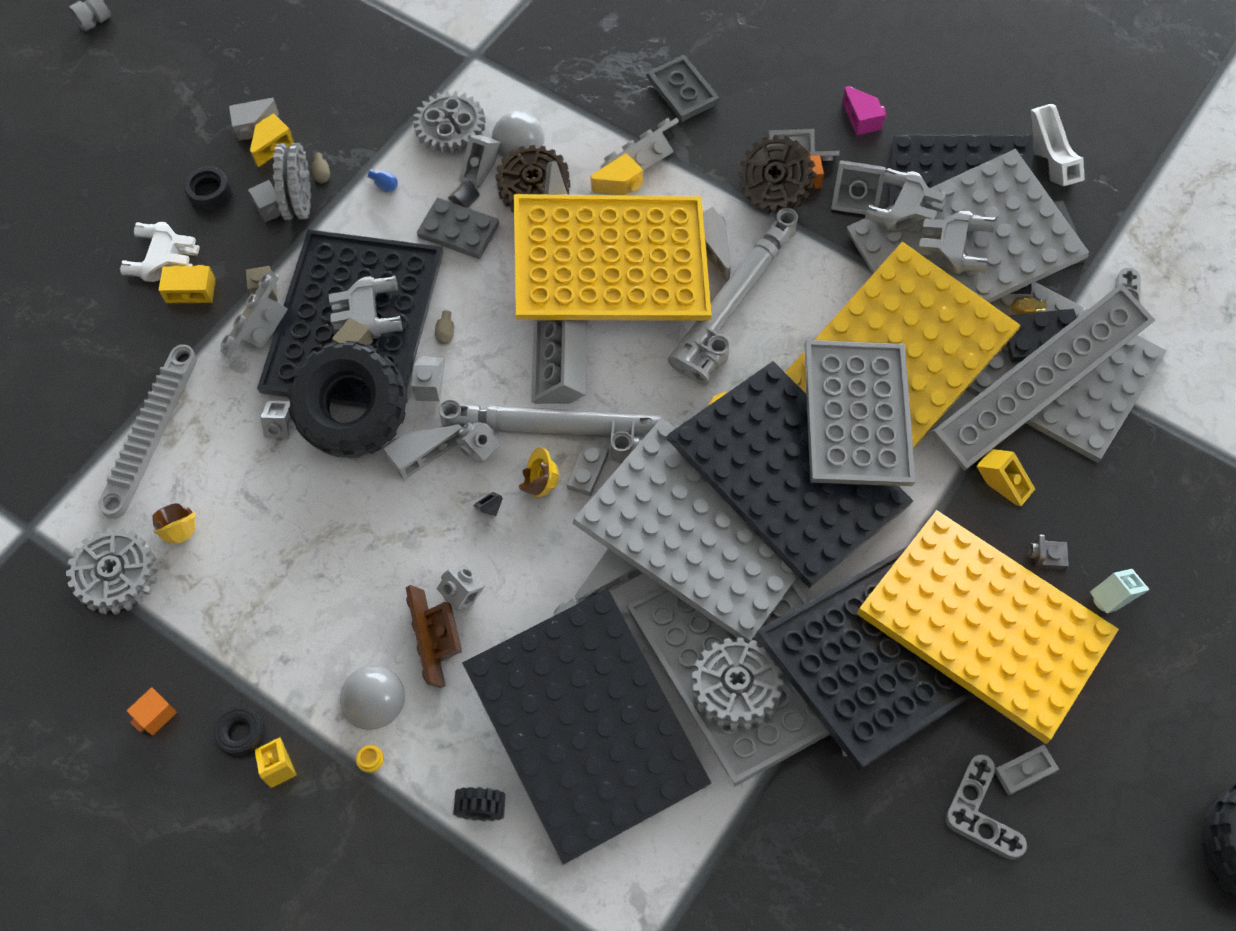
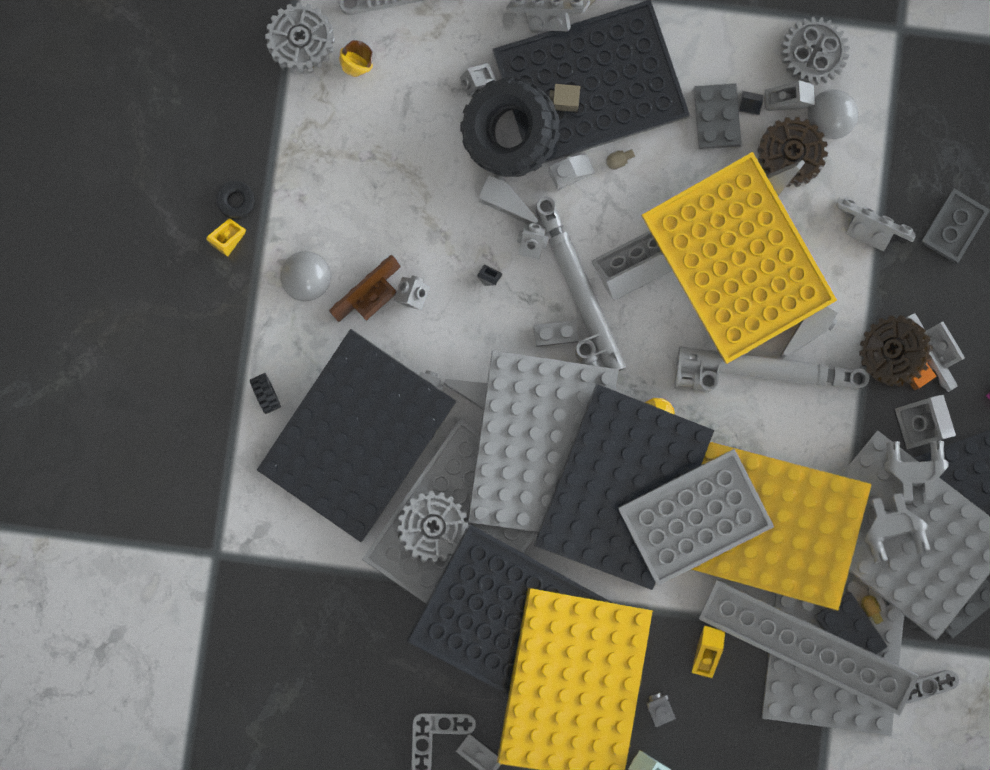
camera: 60 degrees right, 20 degrees up
(151, 712) = (216, 132): orange brick -> none
(361, 306) = (598, 88): light grey connector -> none
(370, 758) = (262, 300): yellow plate -> none
(383, 180) = (730, 30): blue cylinder -> none
(540, 475) = (529, 302): yellow piece -> none
(618, 177) = (832, 220): yellow slope -> none

